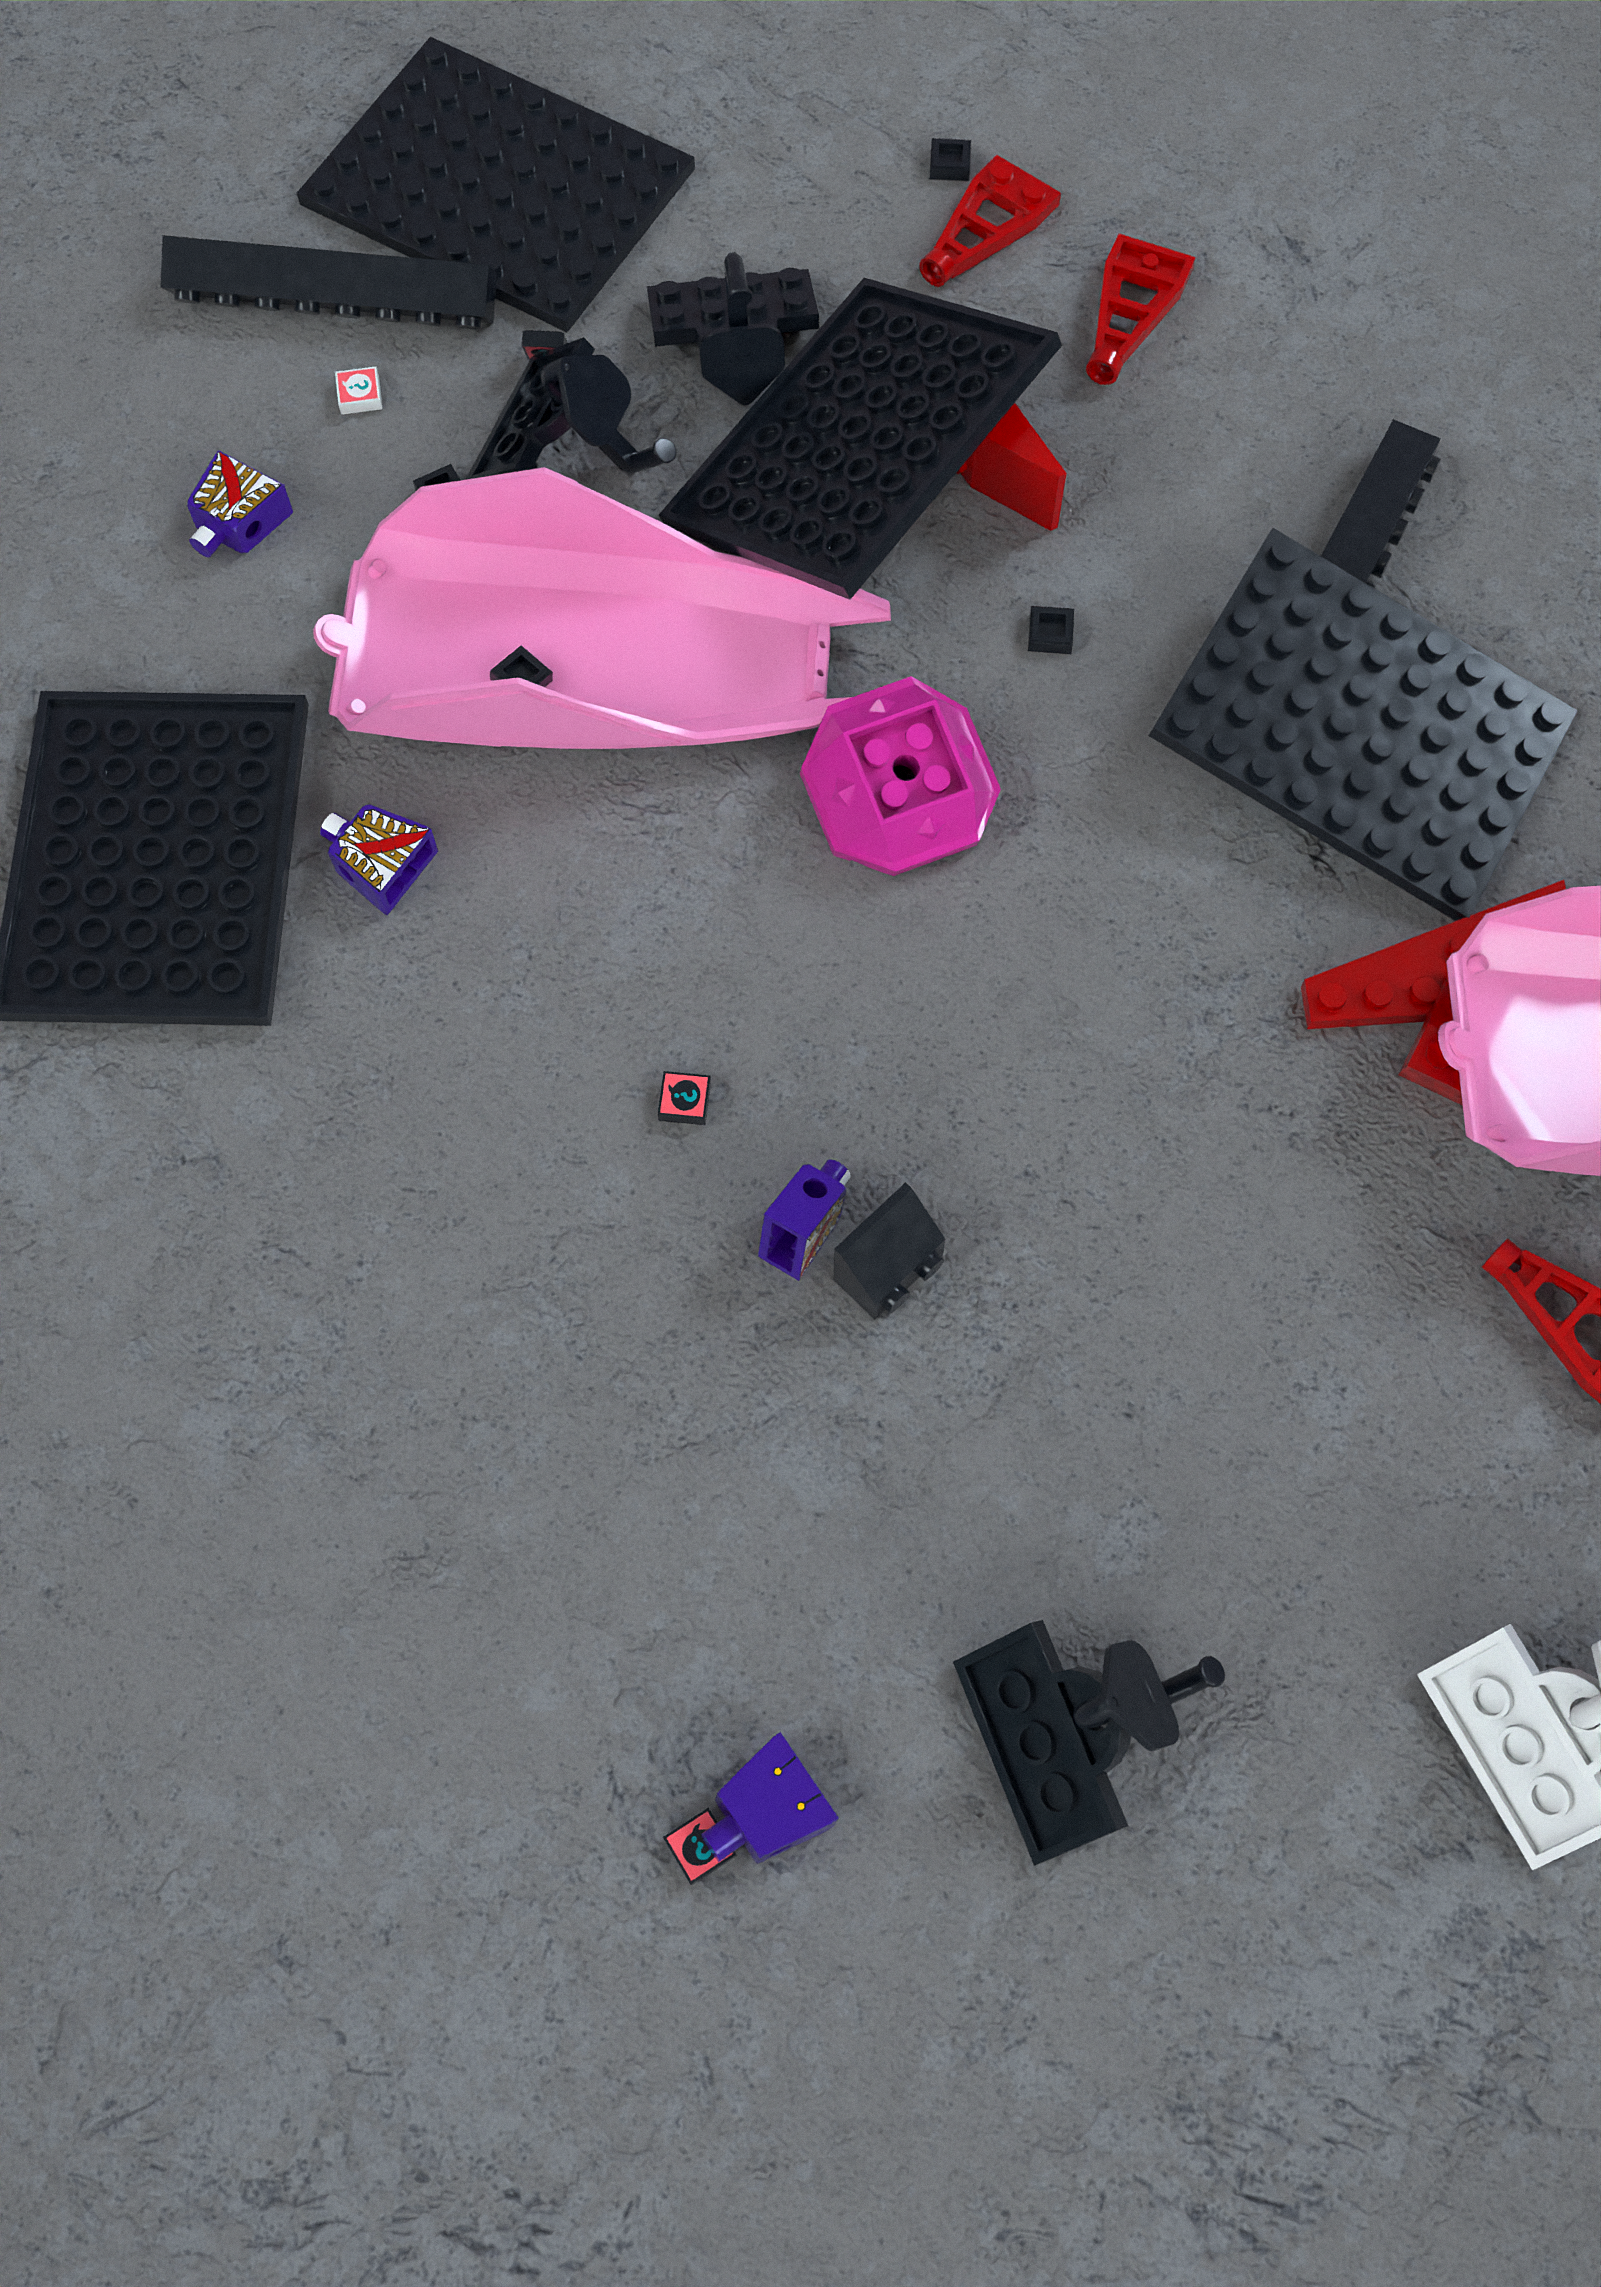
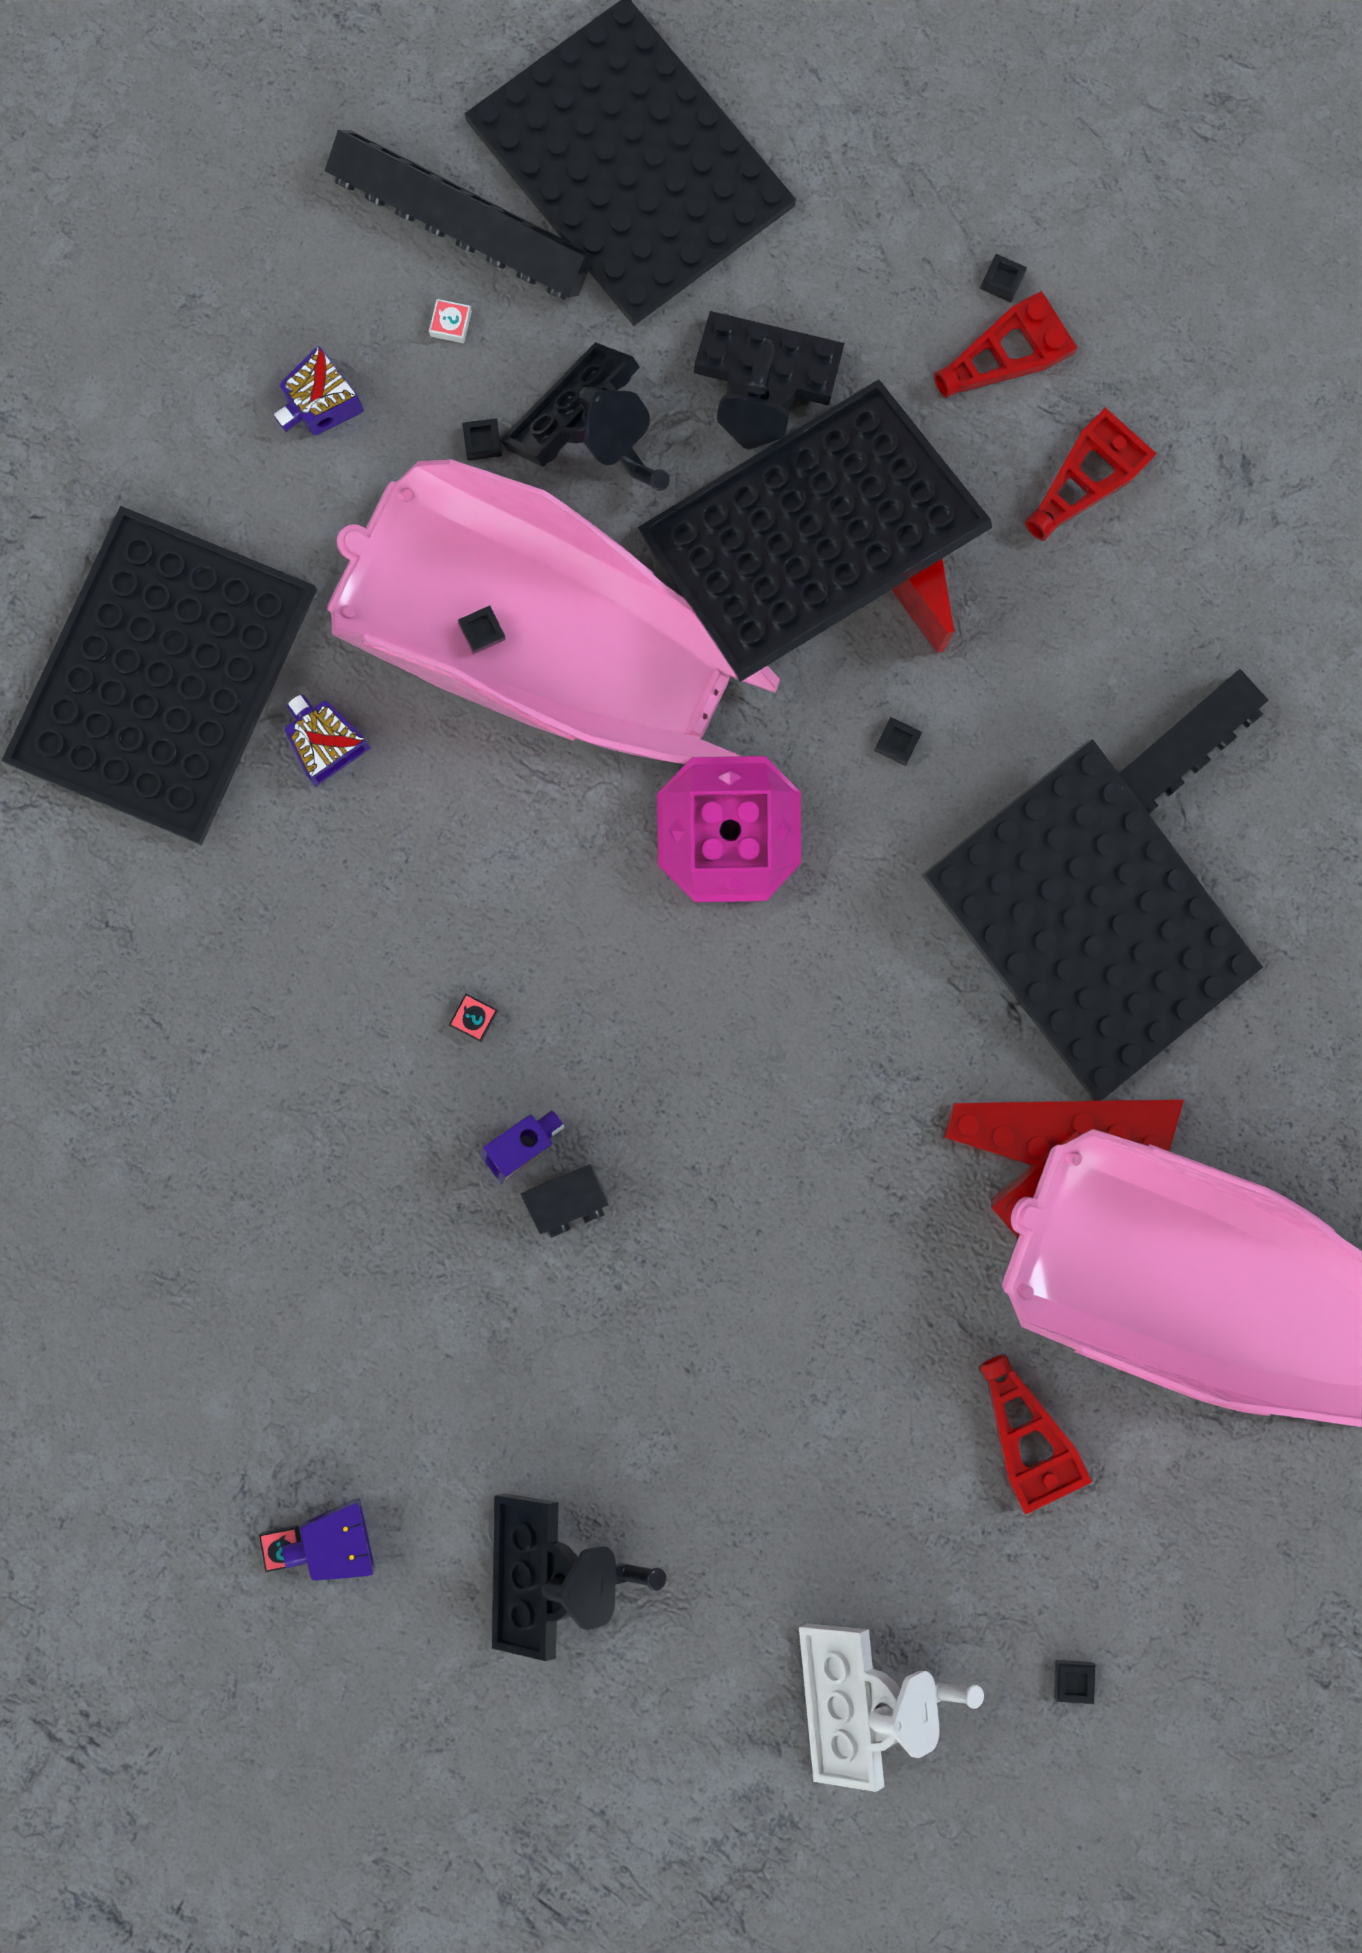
camera: 15 degrees right, 15 degrees up
(540, 341) = (608, 338): black tile -> none

